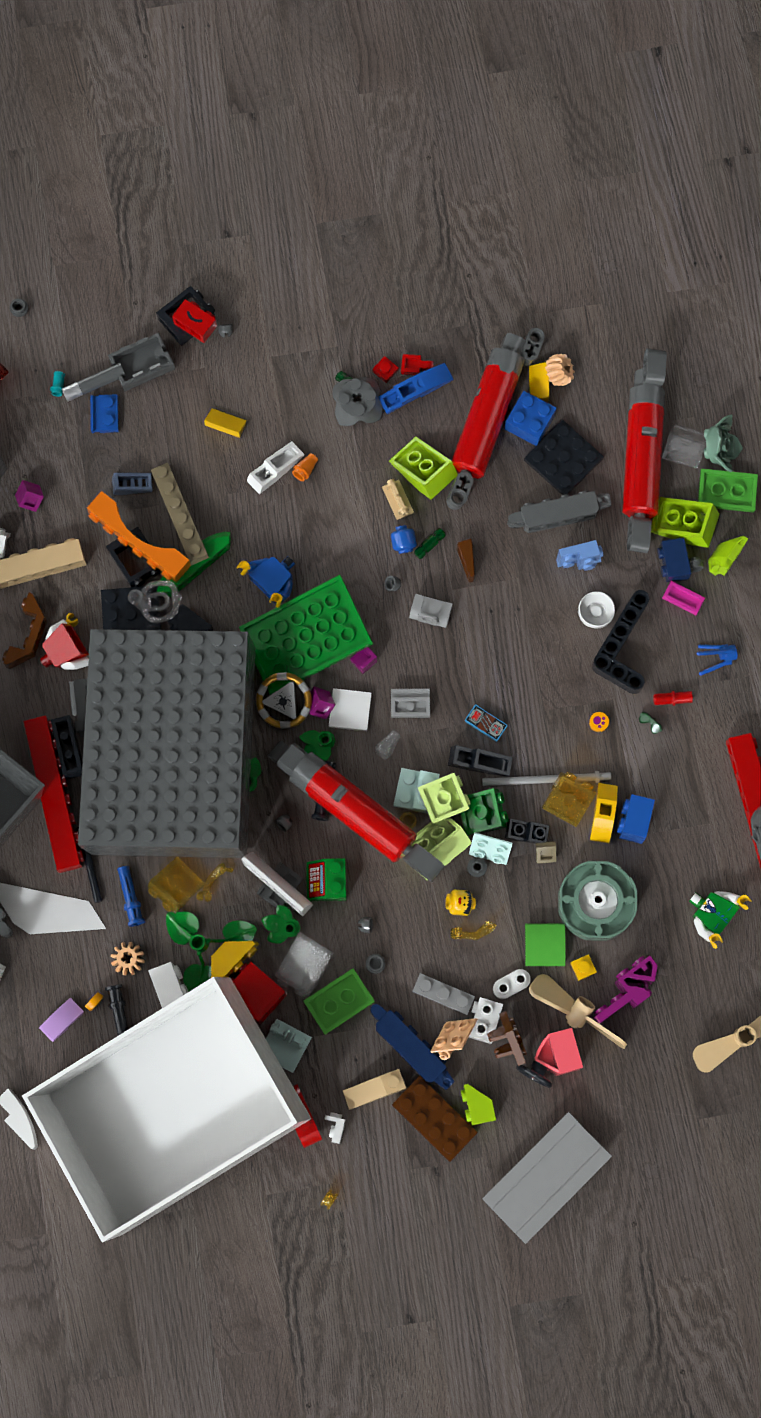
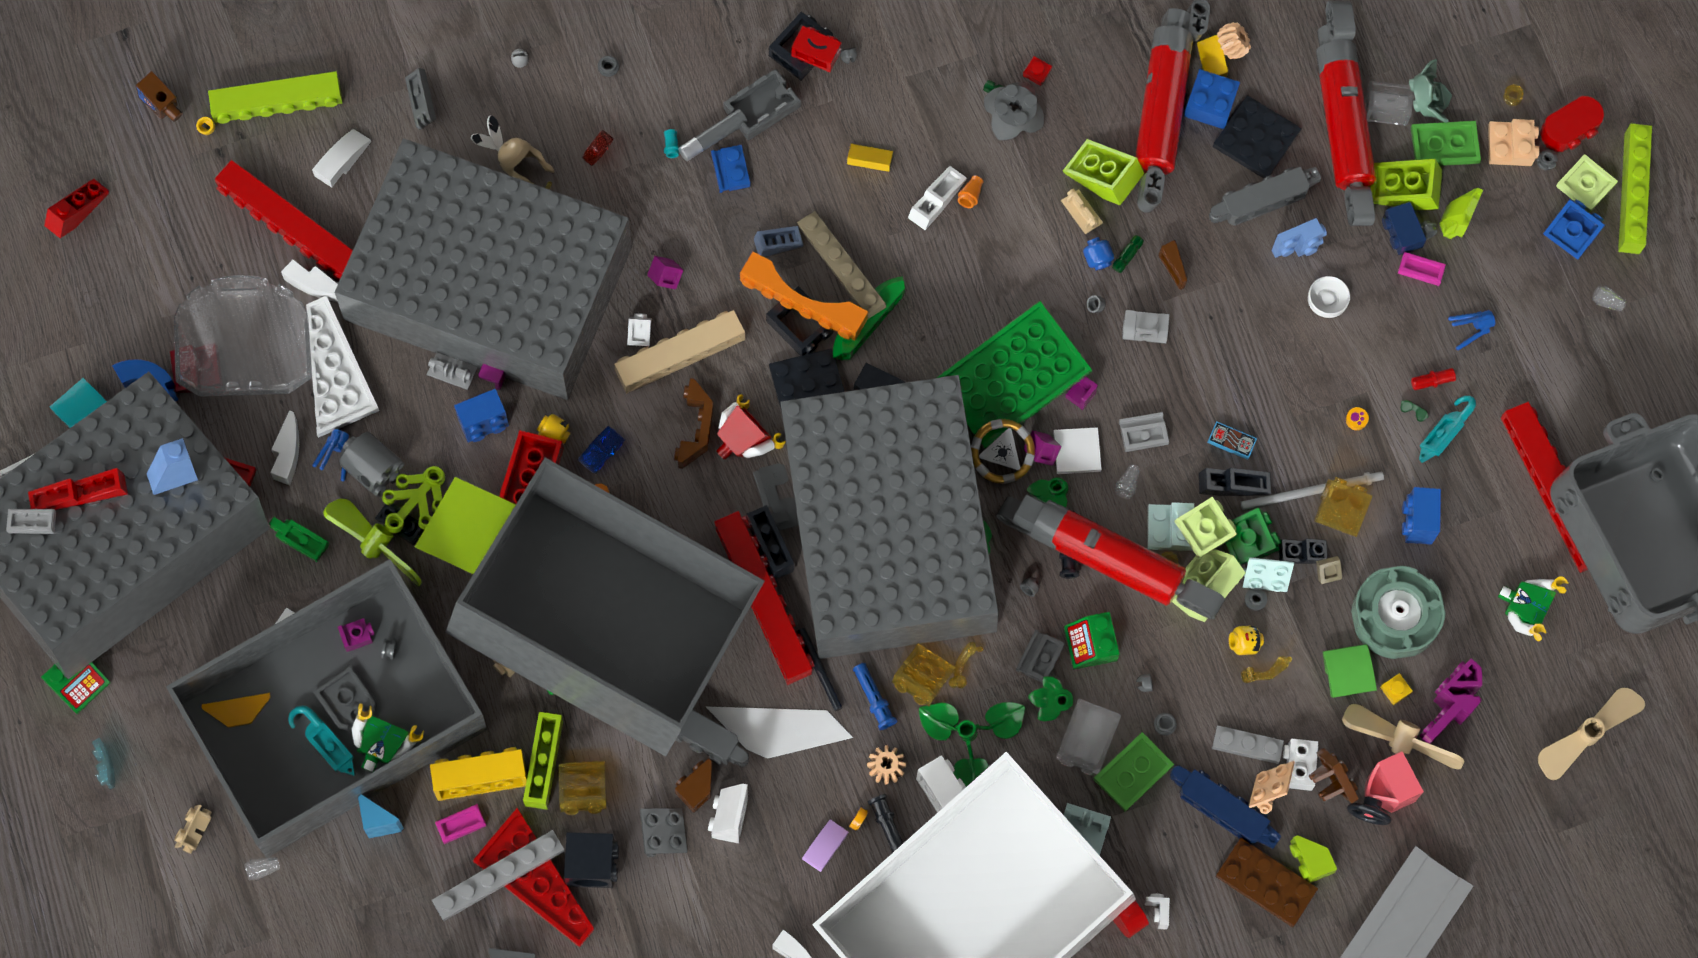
camera: 15 degrees left, 5 degrees down
(143, 602) = (822, 368): clear piece -> none
(229, 957) = (1005, 739): yellow slope -> none
(258, 991) = (1045, 770): red slope -> none
(270, 577) = (958, 318): torso -> none
(277, 883) = (1039, 653): white slope -> none
(374, 1089) = (1194, 860): tan slope -> none
(412, 364) = (1067, 60): red plate -> none
(415, 387) = (1076, 85): blue slope -> none
(511, 983) = (1321, 720): white plate -> none
(604, 813) = (1385, 516): yellow slope -> none
(618, 641) = (1360, 327): black beam -> none
(674, 745) = (1446, 430): none -> teal plate

